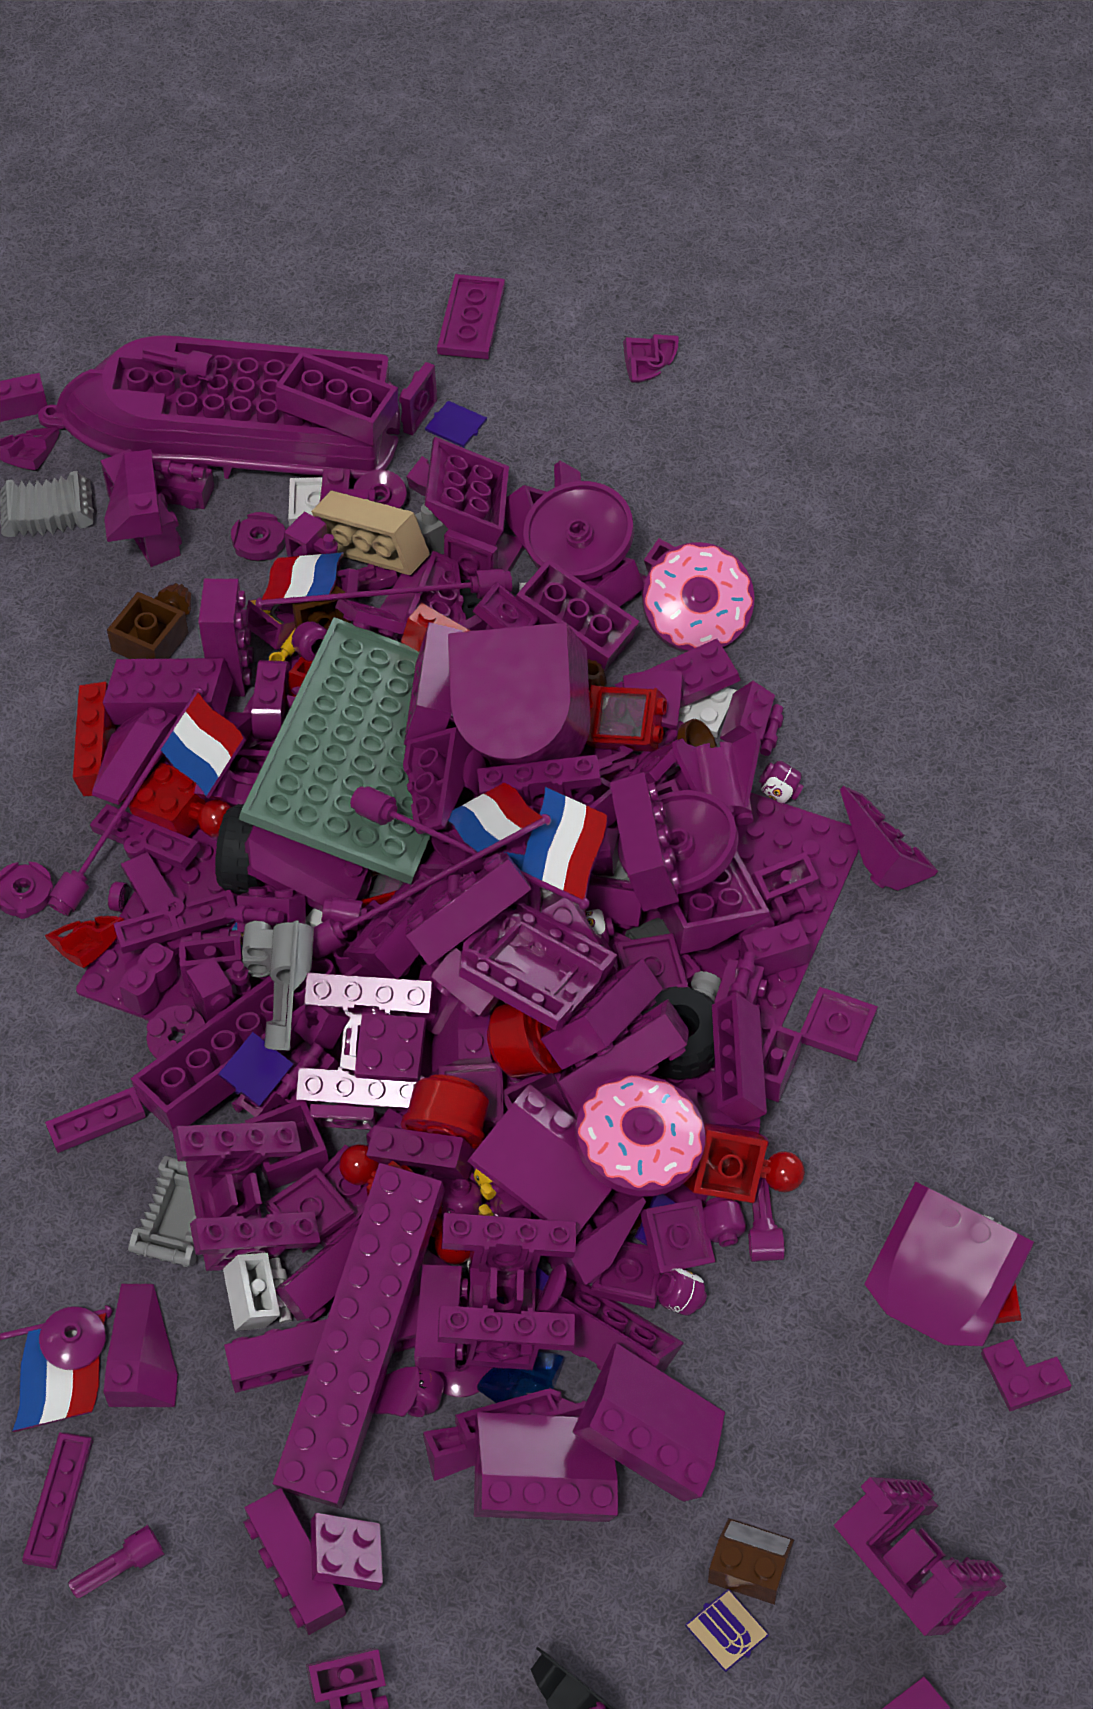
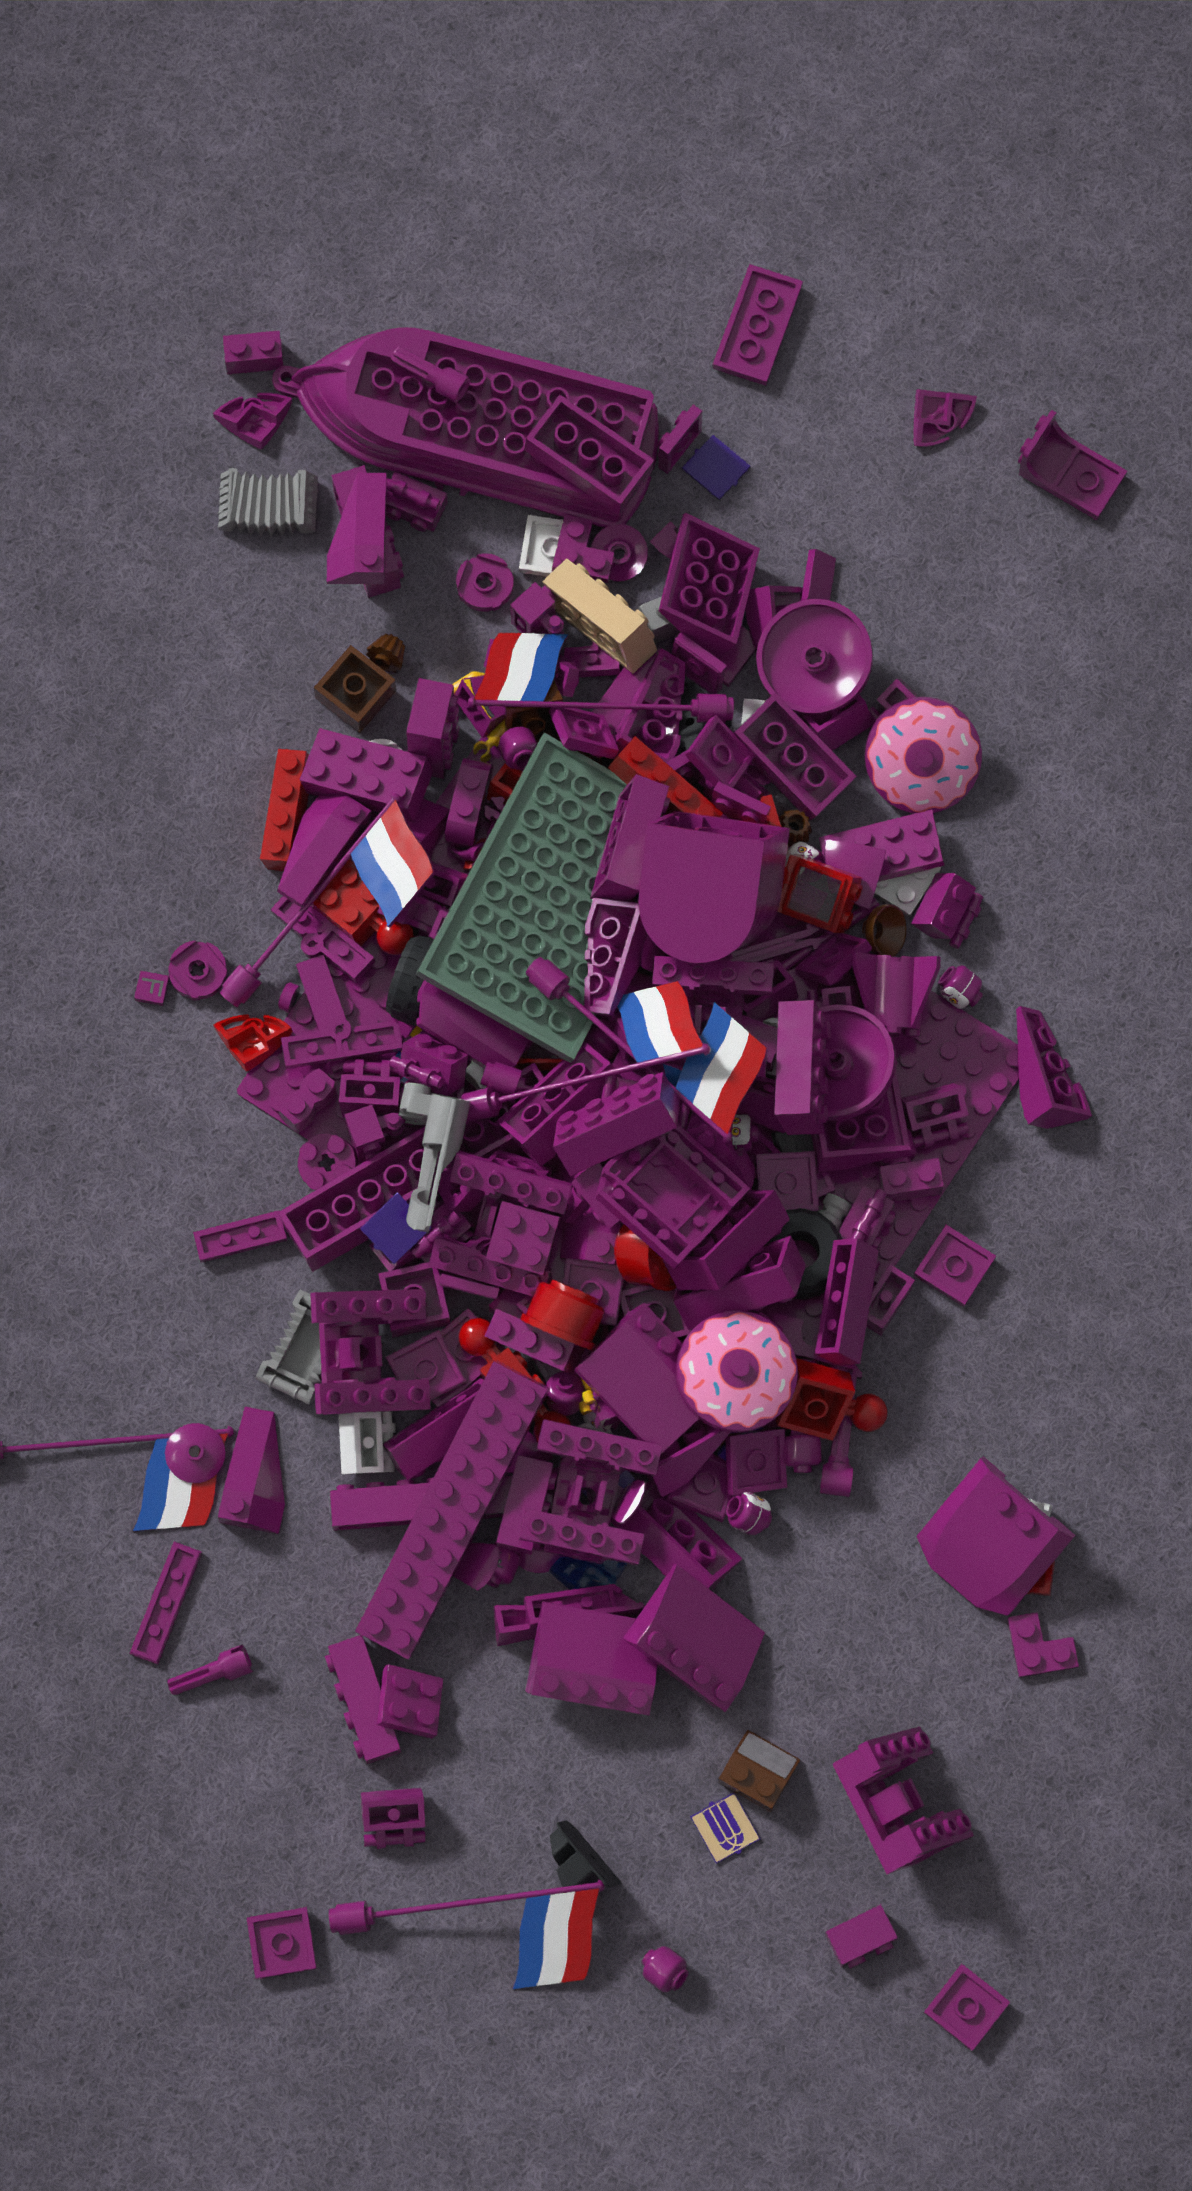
camera: 10 degrees right, 20 degrees up
(770, 374) = (1069, 468): none -> magenta bracket

